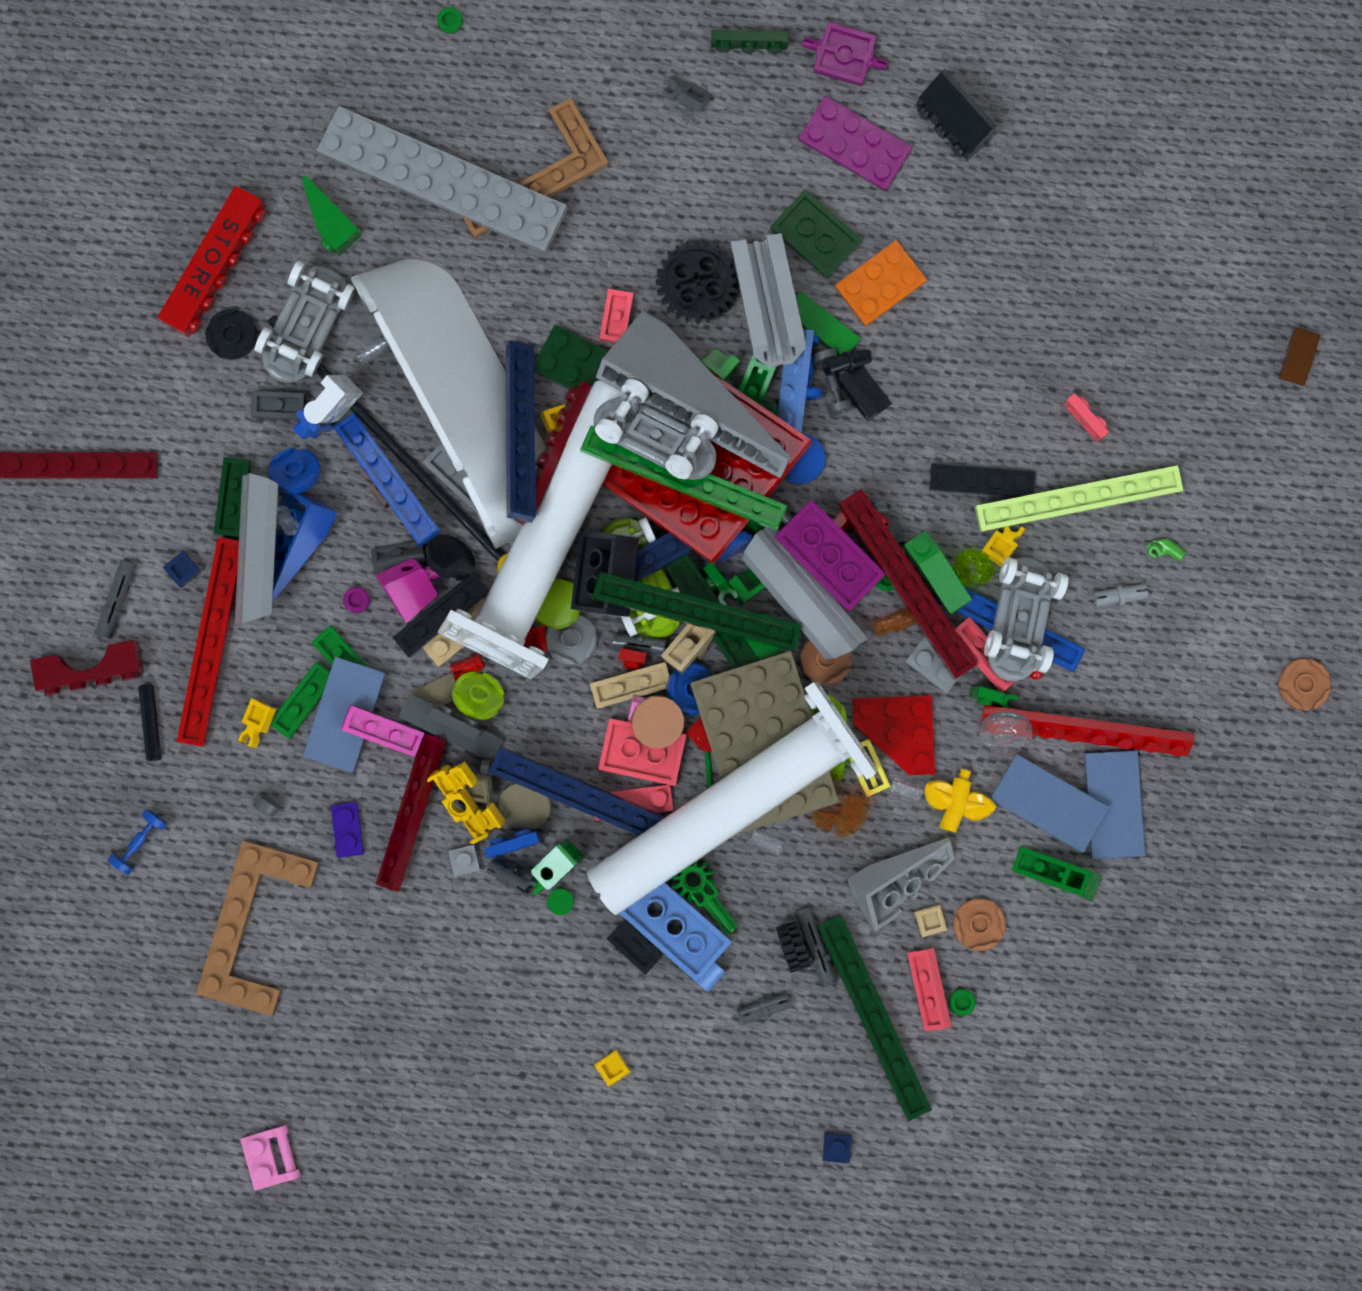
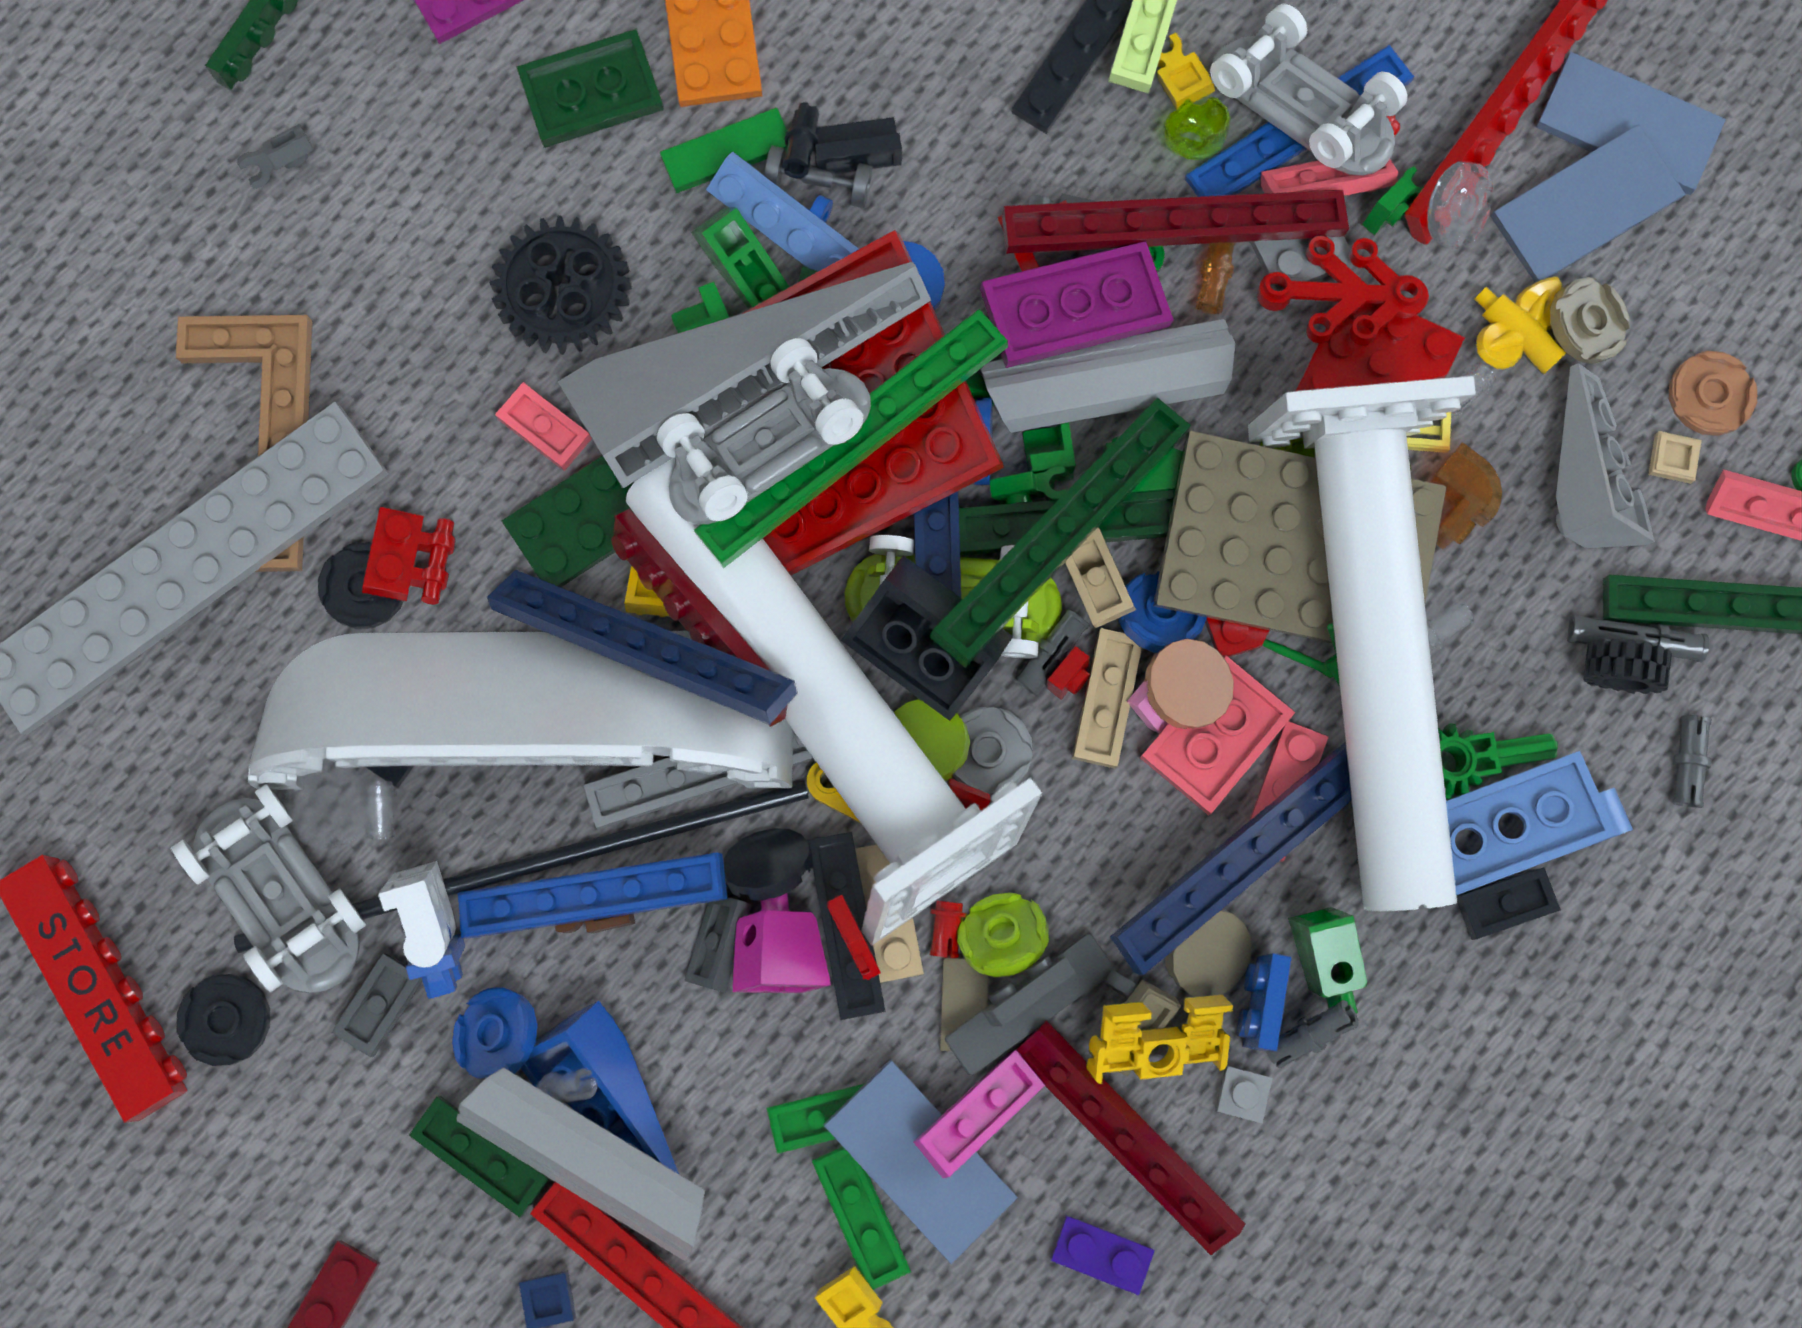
camera: 65 degrees left, 5 degrees down
(332, 225) = (151, 768): green slope -> none
(356, 600) = (750, 1046): magenta tile -> none
(435, 619) = (853, 937): none -> red tile
(488, 279) = (353, 607): none -> black tile
(507, 280) = (394, 552): none -> red plate
(560, 901) = (1384, 980): green tile -> none
(612, 1068) = (1675, 1036): yellow tile -> none
(769, 300) = (653, 185): light grey piece -> none
(822, 670) = (1223, 415): nougat tile -> none
(922, 698) = (1349, 291): none -> red plant
(936, 572) = (1178, 174): green slope -> none
(981, 836) = (1589, 320): none -> dark tan tile
(1056, 873) = (1694, 248): green slope -> none

